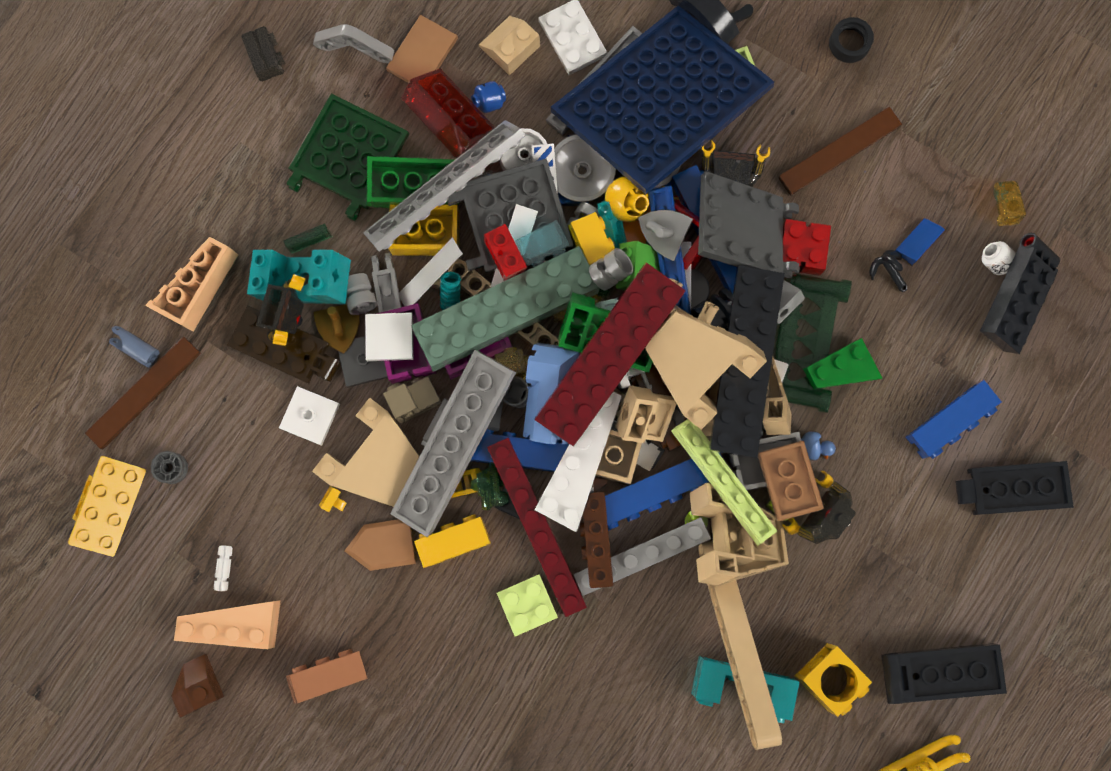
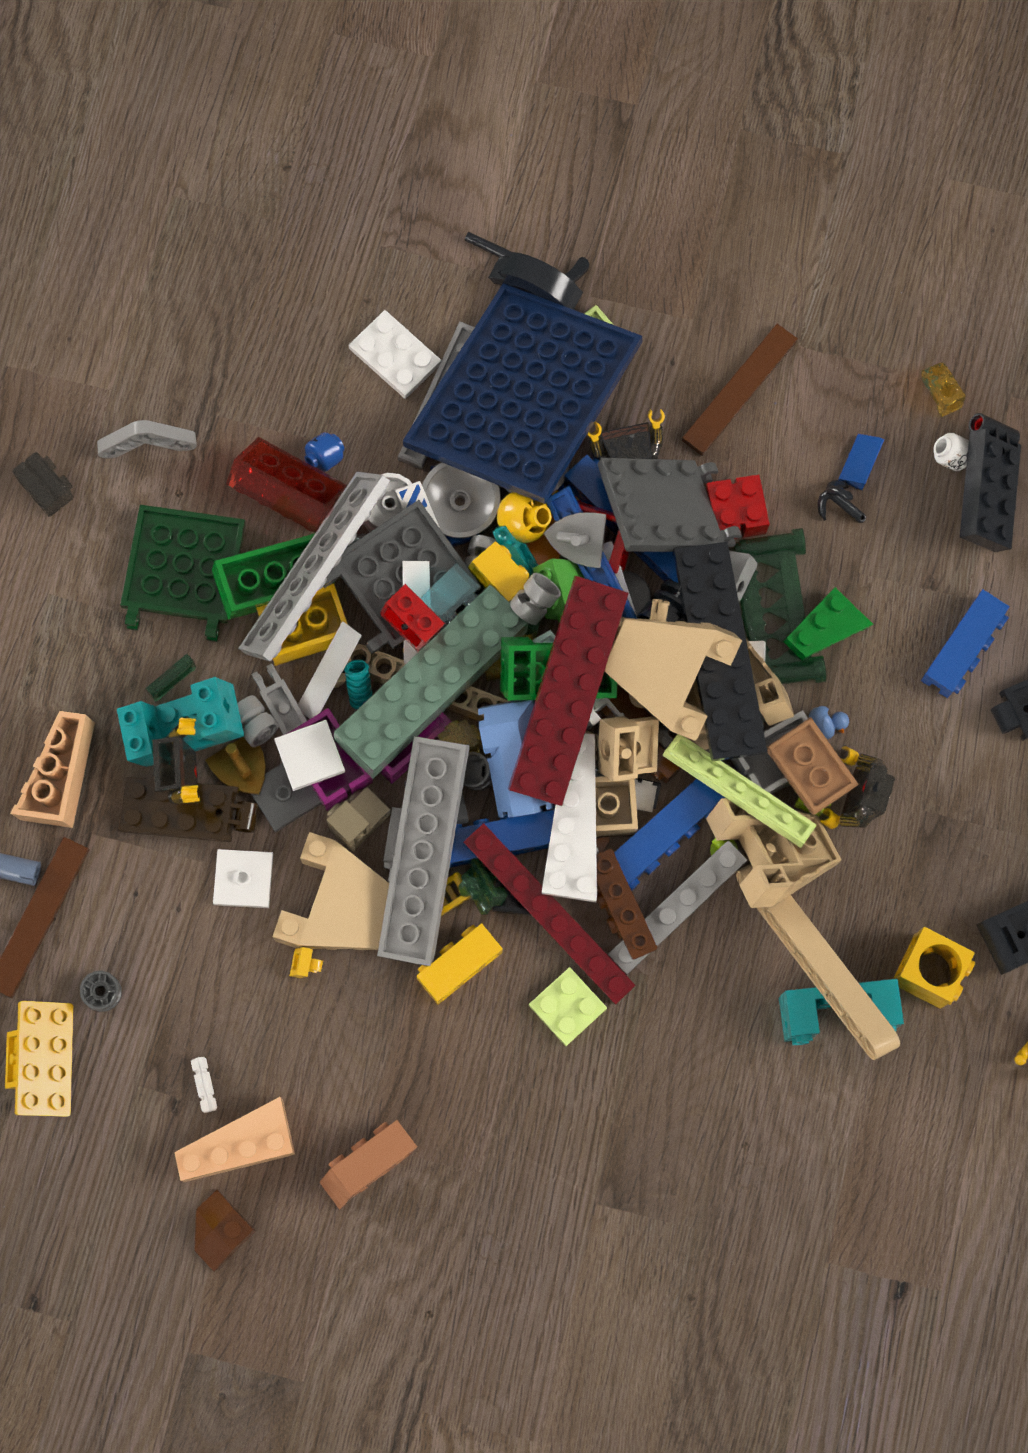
camera: 30 degrees left, 5 degrees down
(383, 545) = (380, 996): medium nougat tile -> none
(422, 50) = (227, 424): medium nougat tile -> none
(511, 43) = (327, 383): tan slope -> none
(857, 25) = (709, 244): black tyre -> none

